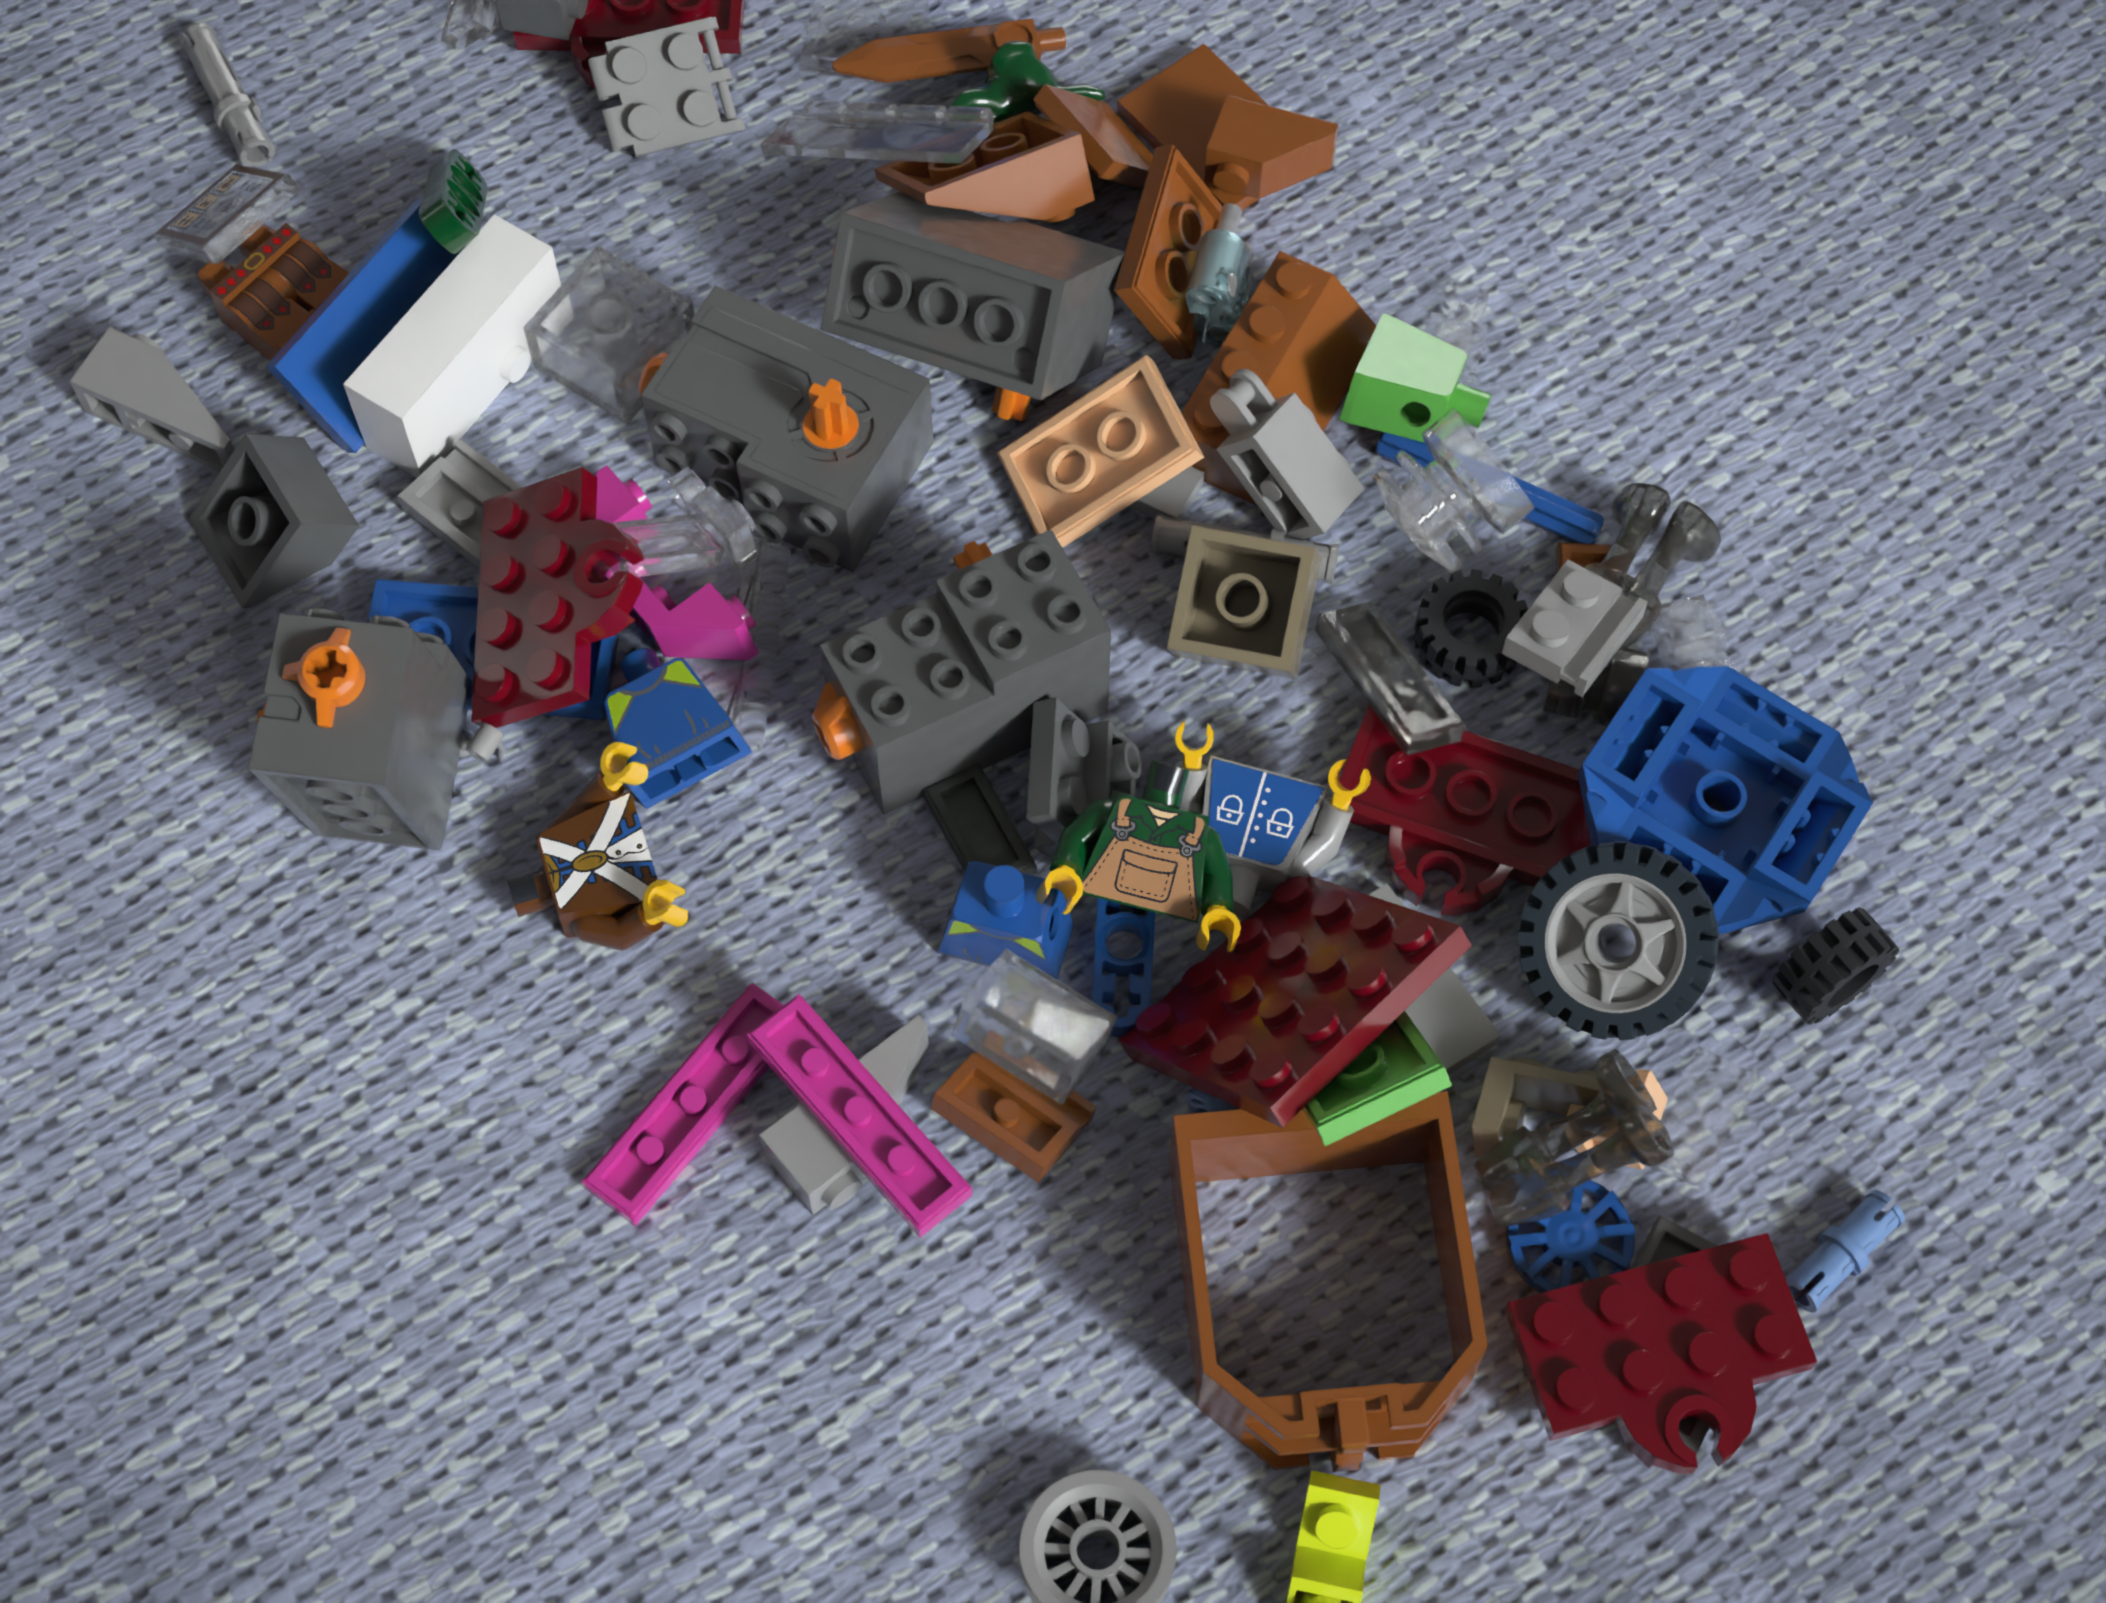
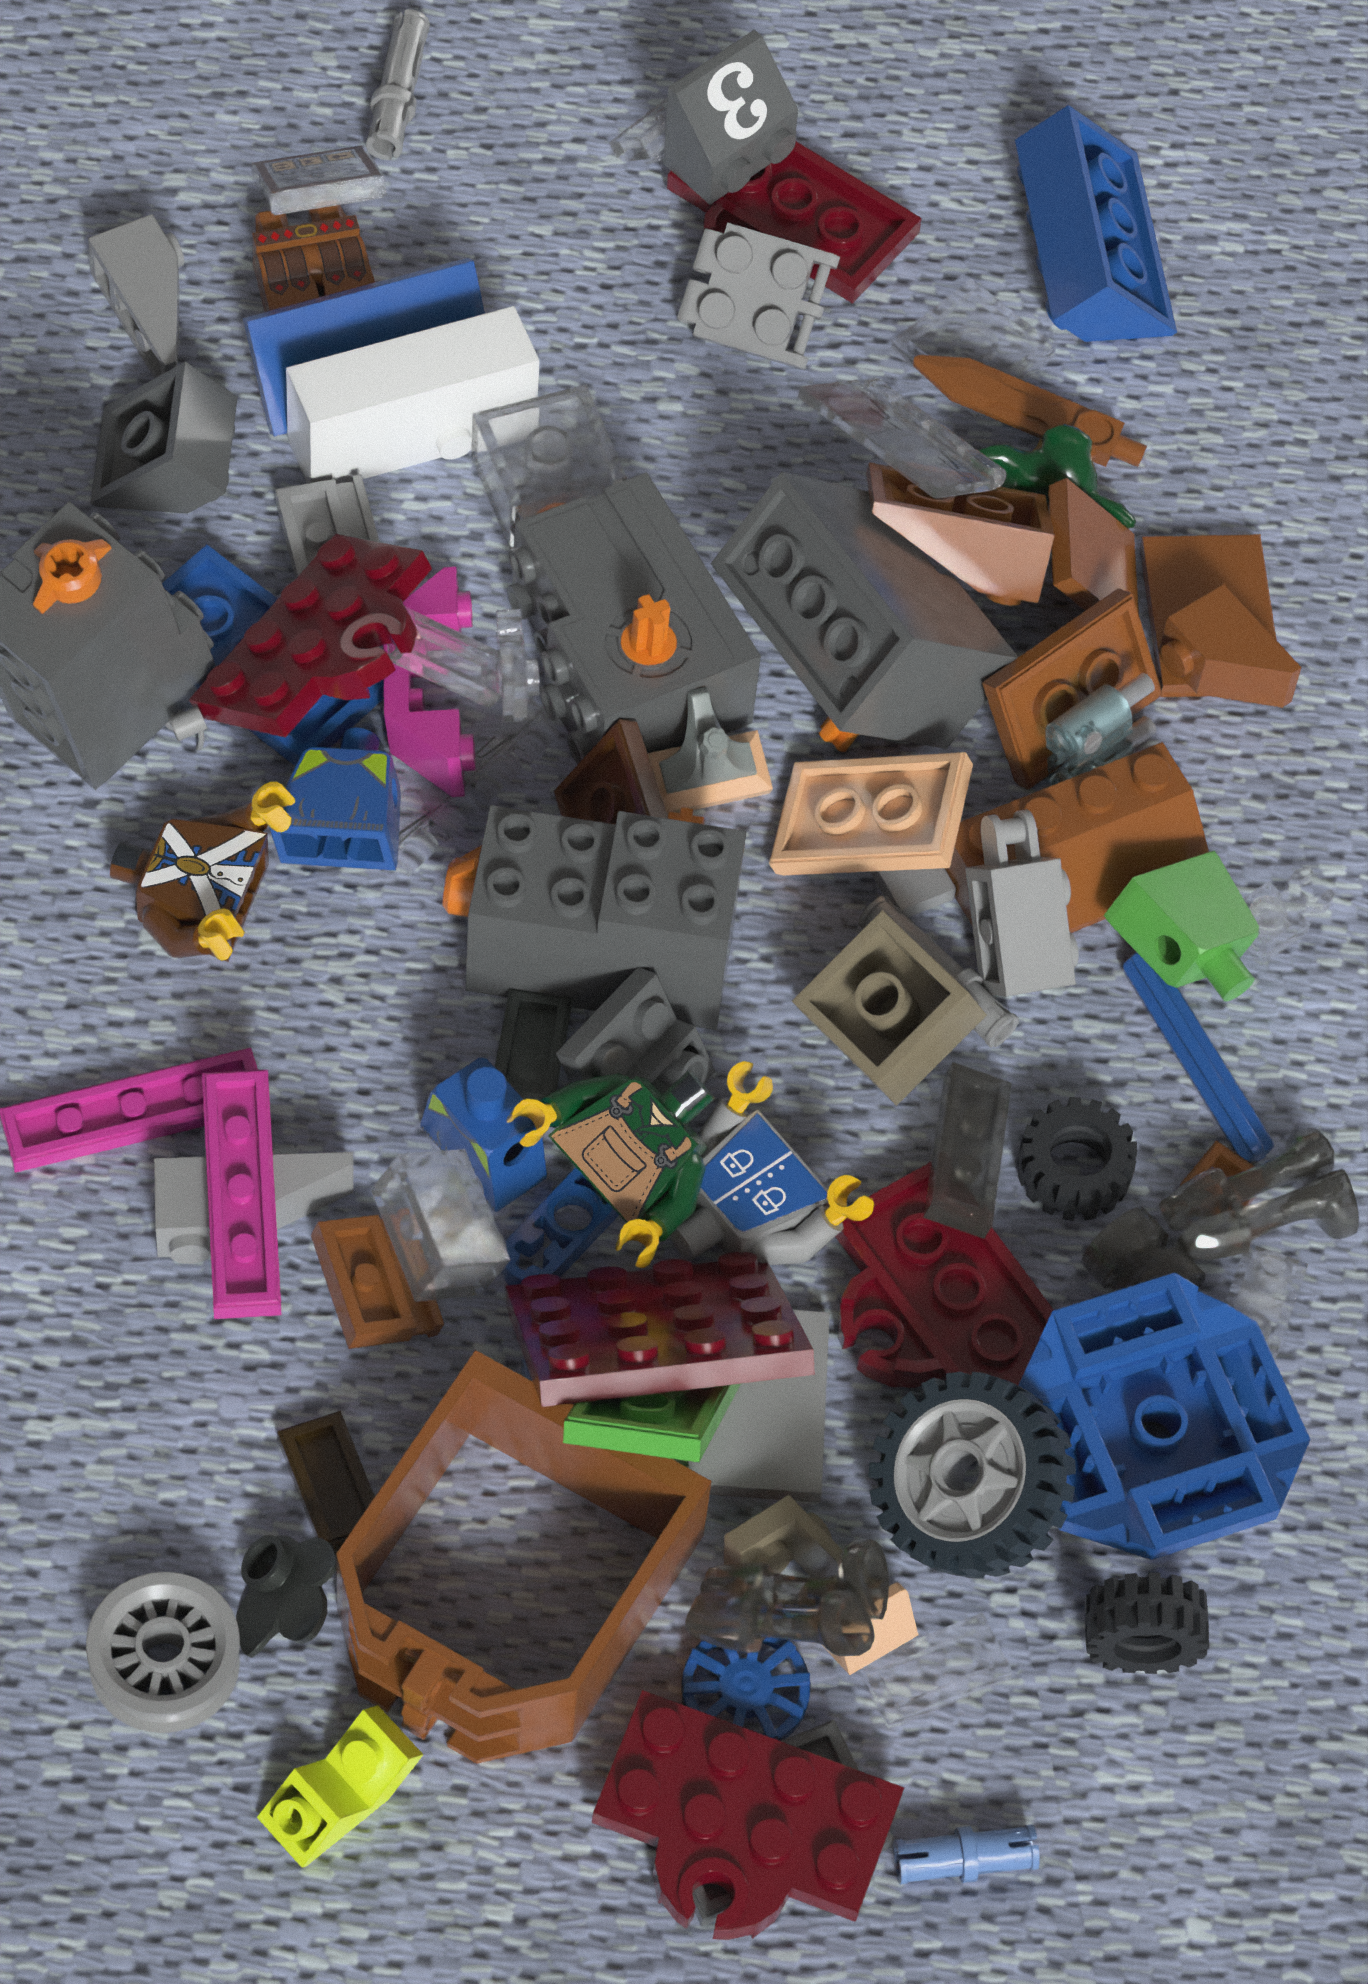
camera: 30 degrees right, 5 degrees down
(453, 201) = (497, 277): dark green beam -> none
(884, 566) = (612, 780): none -> reddish brown tile
(936, 506) = (709, 763): none -> light grey piece
(1111, 1305) = (327, 1475): none -> dark brown tile
(1165, 1428) = (284, 1590): none -> pearl dark grey plate
(1452, 492) = (1125, 1031): clear wheel -> none
(1574, 627) = (1147, 1204): light grey plate -> none

